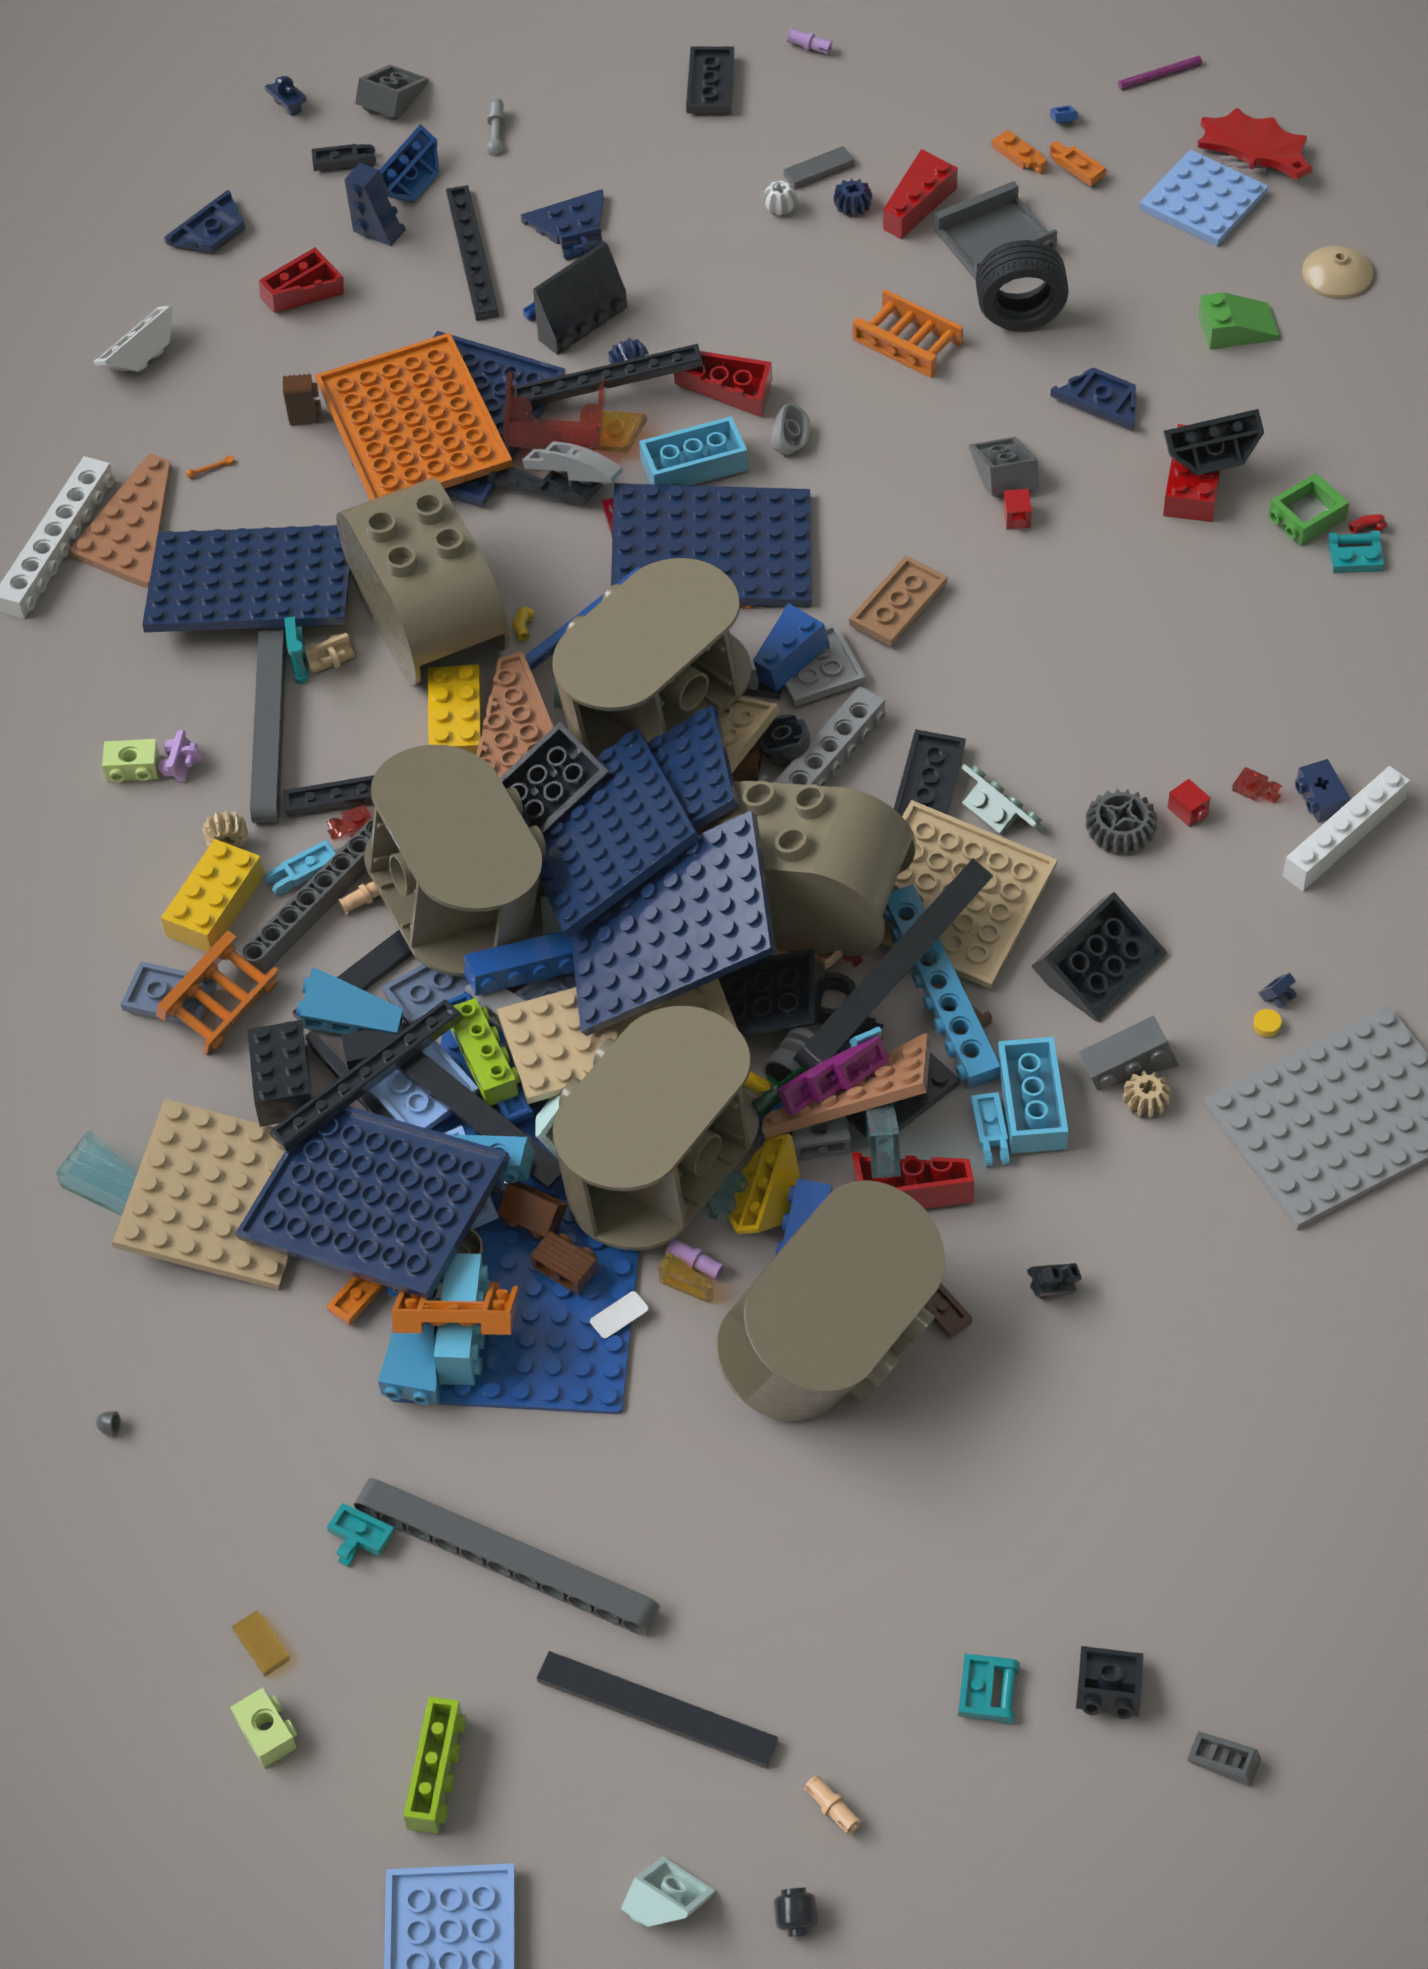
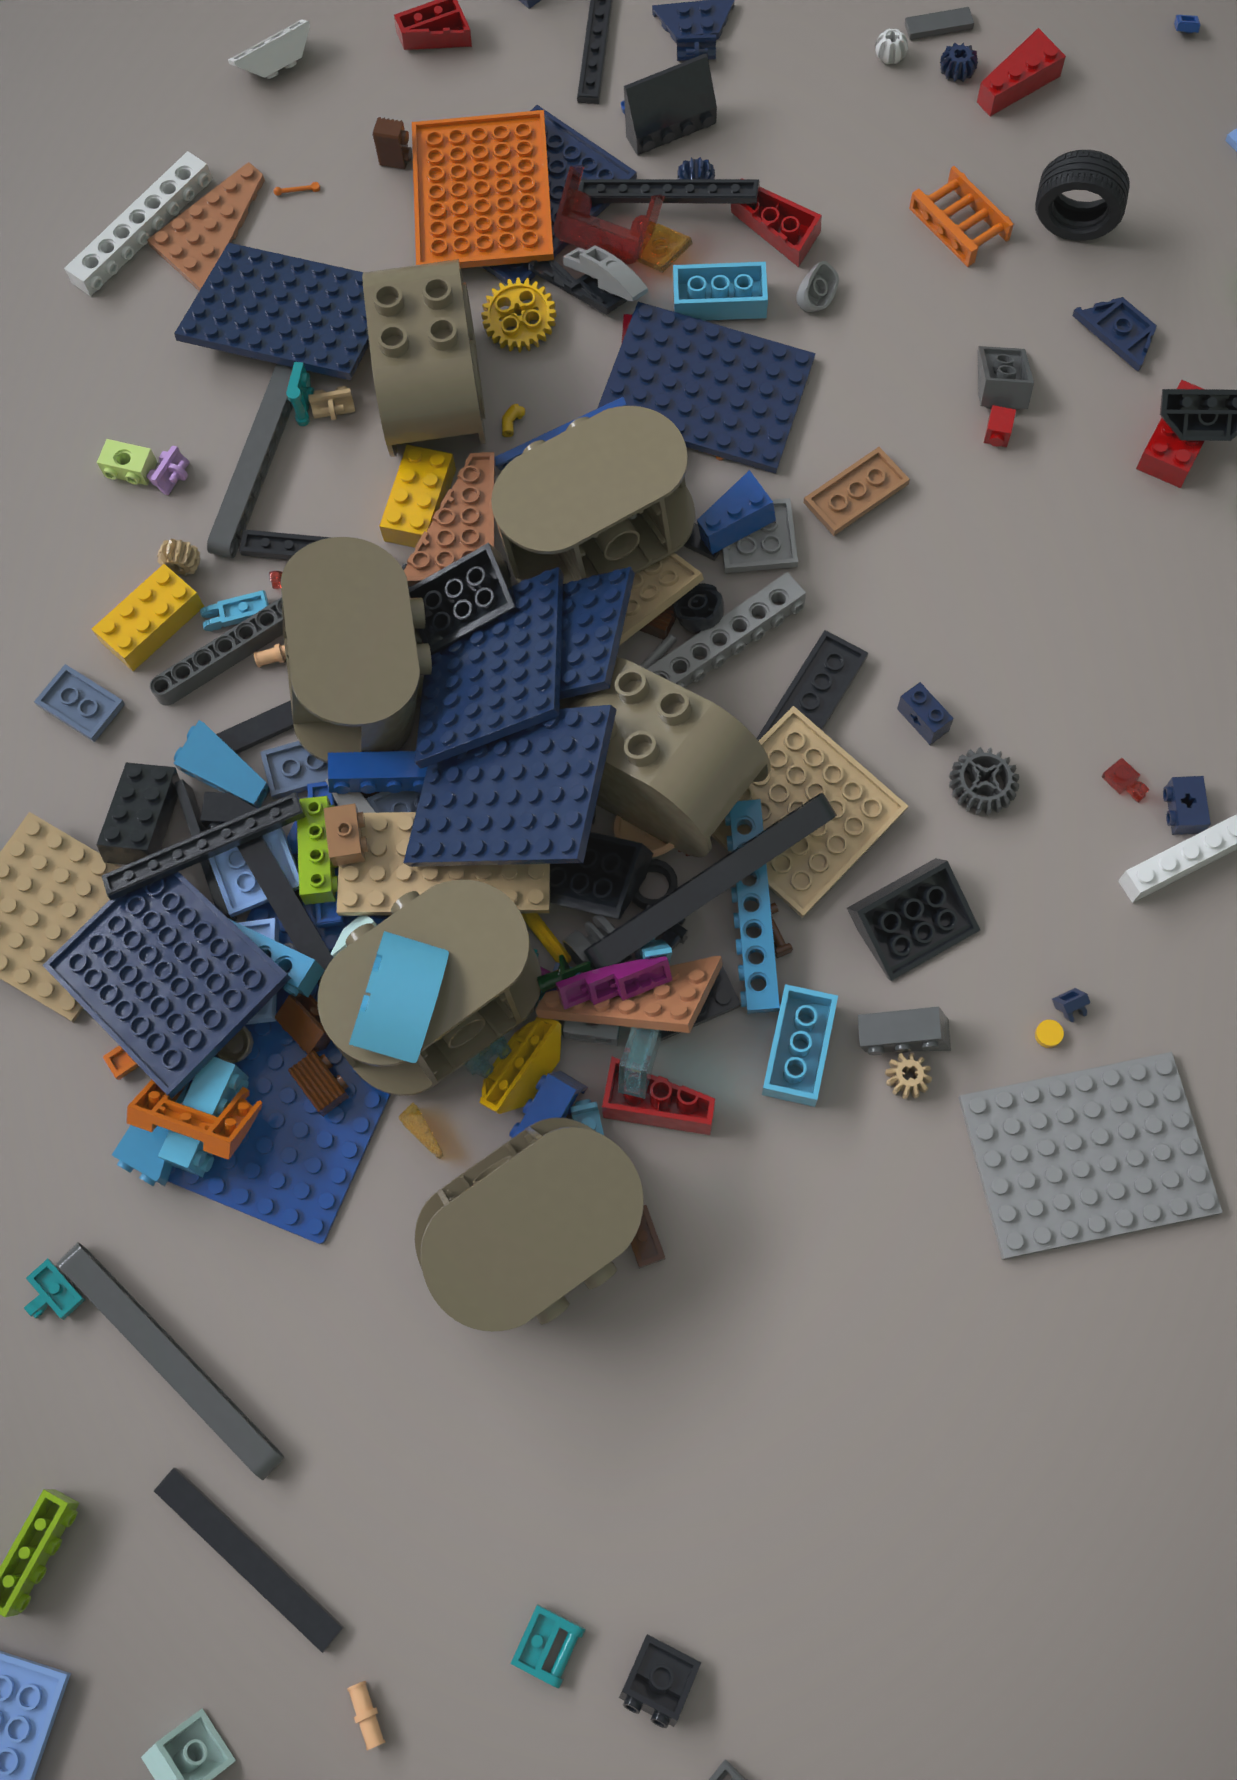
camera: 20 degrees right, 15 degrees up
(208, 968) = (93, 705): orange fence -> none
(496, 524) = (513, 296): none -> yellow gear
(512, 1021) = (345, 834): none -> medium nougat brick
(619, 1314) = (351, 1148): white sticker -> none
(643, 1119) = (401, 997): none -> medium azure panel
(695, 1258) = (439, 1113): lavender pin -> none
(986, 222) = (1078, 121): dark grey panel -> none
(990, 1126) = (752, 1061): medium azure hinge -> none
(993, 807) = (872, 730): bracket -> none
(1019, 152) = (1131, 53): orange hinge -> none
(1041, 777) = (925, 713): none -> dark blue brick
(1054, 1279) = (752, 1244): black hips -> none
(1077, 163) = (1182, 78): orange hinge -> none
(1189, 803) = (1055, 781): red brick -> none

